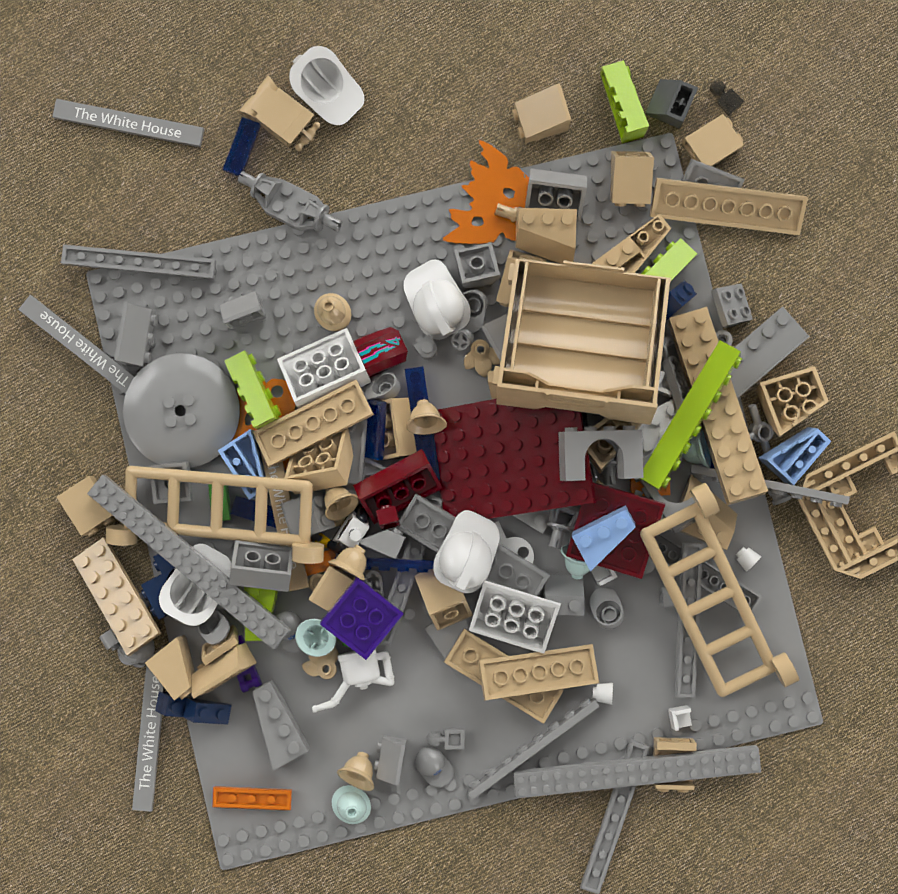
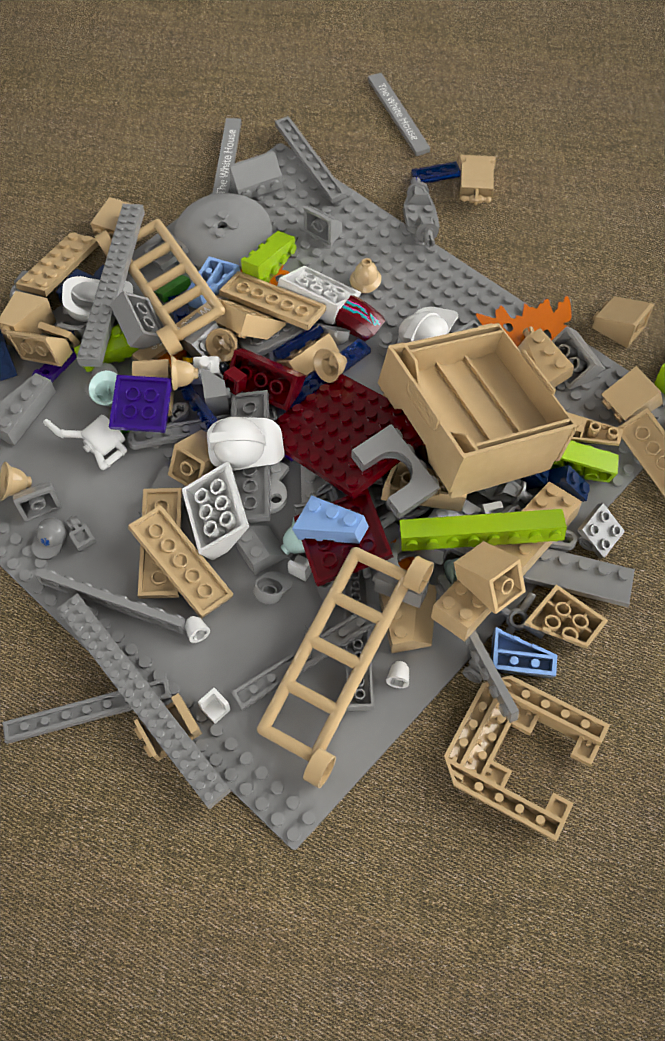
camera: 55 degrees right, 25 degrees down
(316, 665) = (88, 413): tan plate -> none
(326, 85) = (519, 186): white piece -> none
(739, 443) = (491, 575): none -> tan slope

